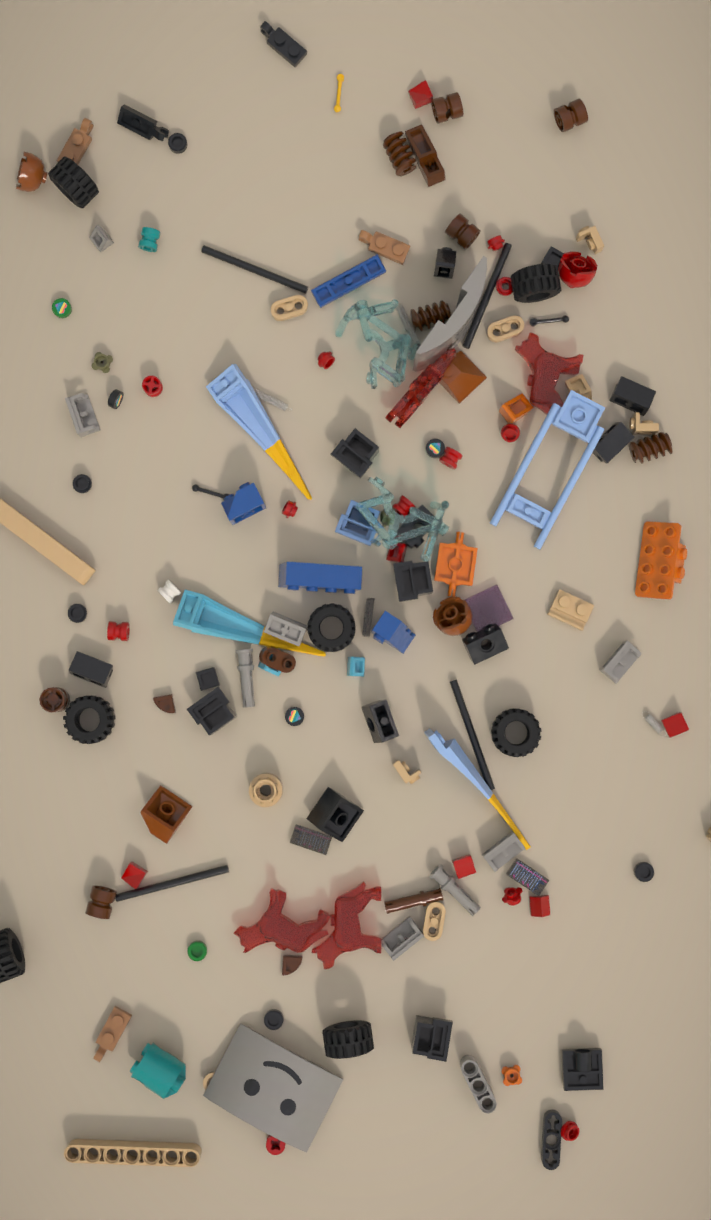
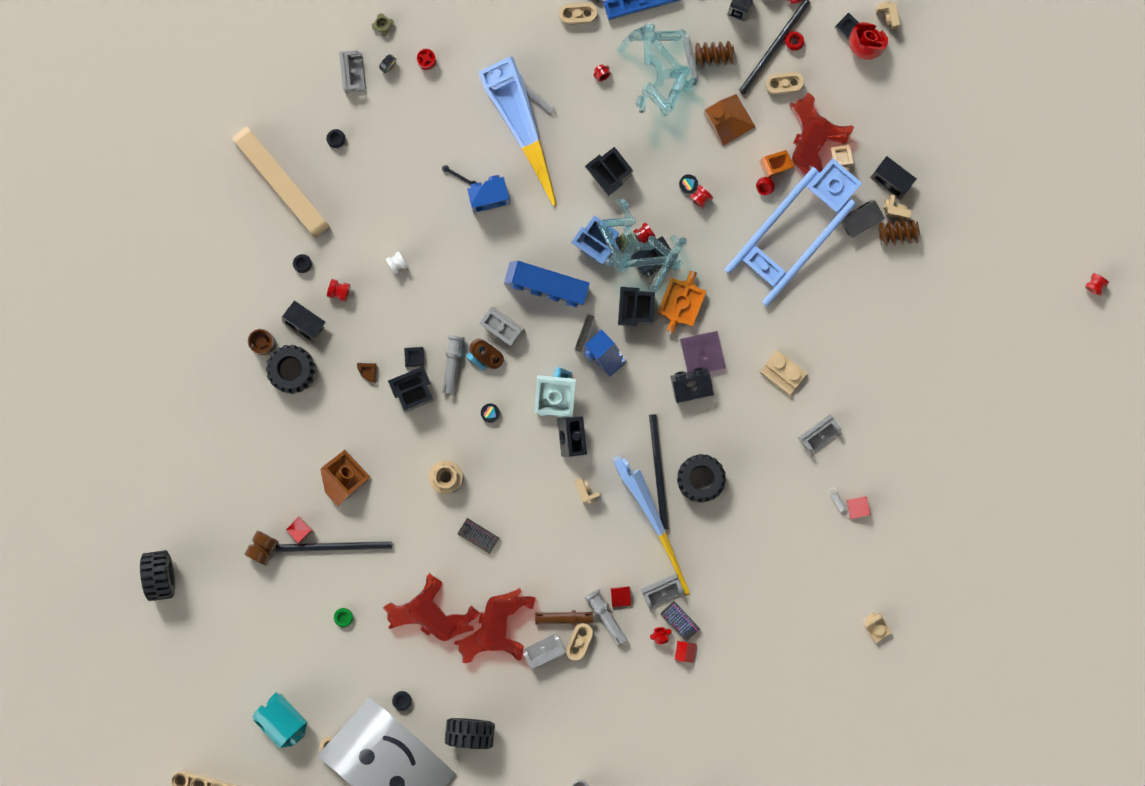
camera: 10 degrees right, 0 degrees up
(112, 1032) = (243, 675): medium nougat plate -> none
(213, 619) = (432, 299): medium azure plate -> none
(289, 509) = (532, 210): red plate -> none
(290, 964) = (430, 651): reddish brown tile -> none
(316, 619) = (539, 319): black tyre -> none
(335, 814) = (507, 516): black slope -> none
(354, 686) = (554, 396): none -> light aqua plate
(397, 554) = (627, 278): red slope -> none
(421, 388) = (687, 123): clear red animal -> none
(431, 1037) = (551, 752): black plate -> none
(450, 334) = (721, 79): light grey slope -> none
(453, 616) = (666, 351): dark orange cylinder -> none
(533, 322) = (814, 83): black hinge -> none
(536, 283) = (823, 46): black tyre -> none
(643, 871) = (794, 642): black tile -> none
(660, 560) = (882, 344): orange bracket -> none

